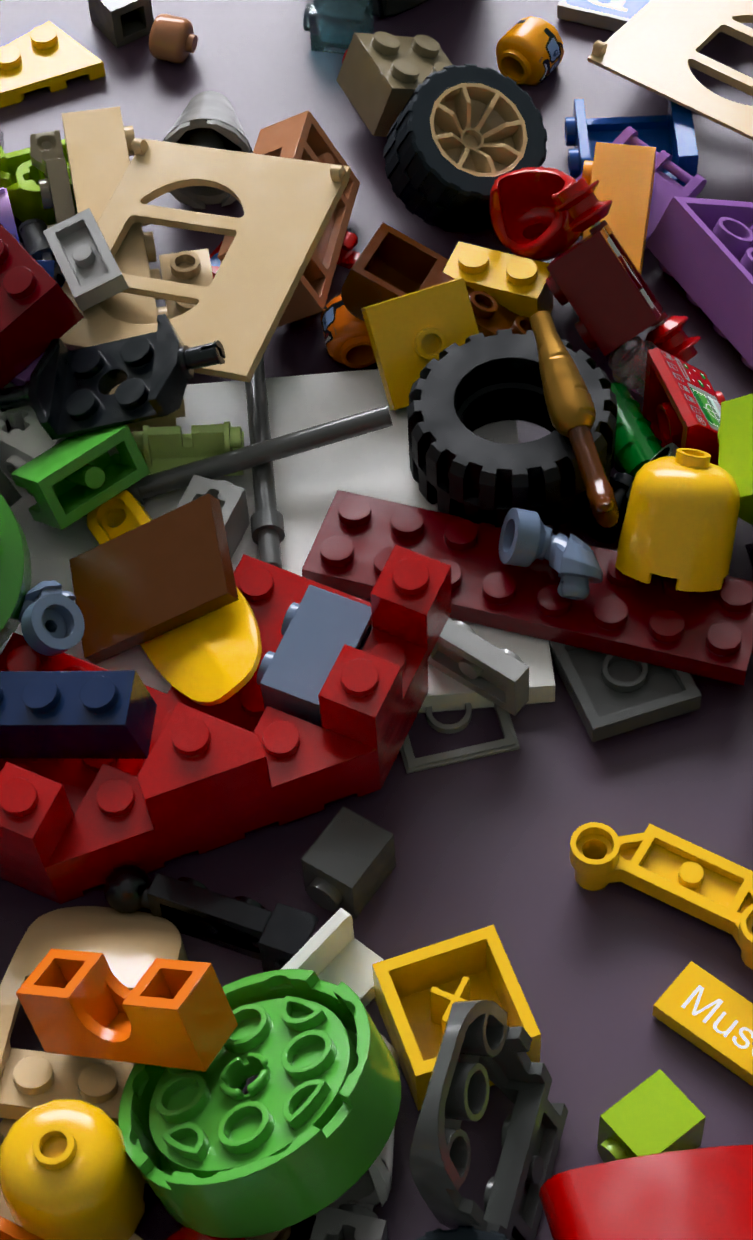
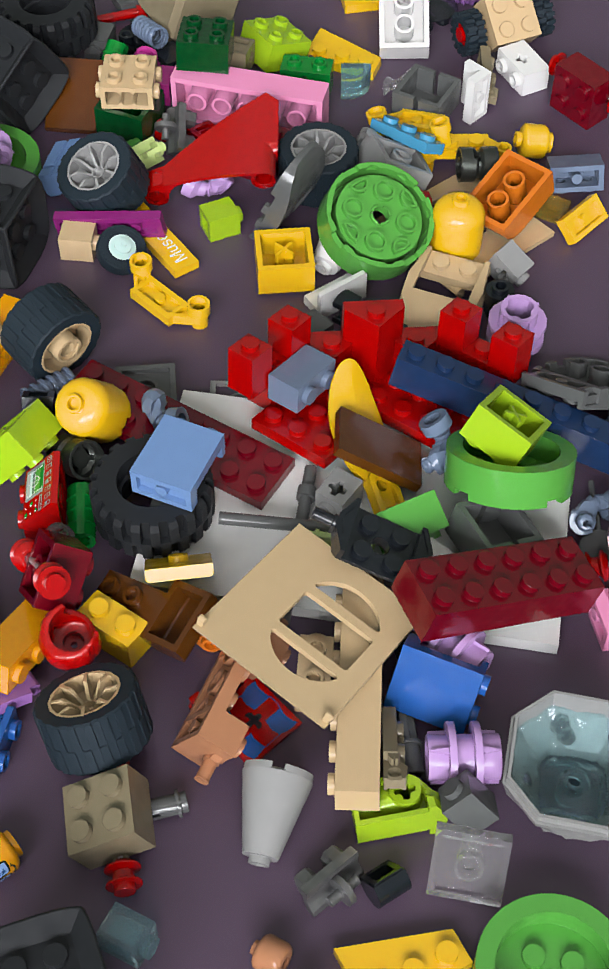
camera: 170 degrees left, 0 degrees up
(46, 114) = (385, 883): none -> black brick
(85, 259) = (382, 633): light grey plate -> none
(131, 96) = (333, 882): none -> flat silver hips
(168, 1019) = (437, 259): orange arch -> none
(350, 136) = (169, 805): none -> dark grey pin
(468, 401) = (176, 461): none -> medium blue panel
(482, 666) = (214, 383): light grey plate -> none
(573, 414) = (124, 446): pearl gold piece -> none

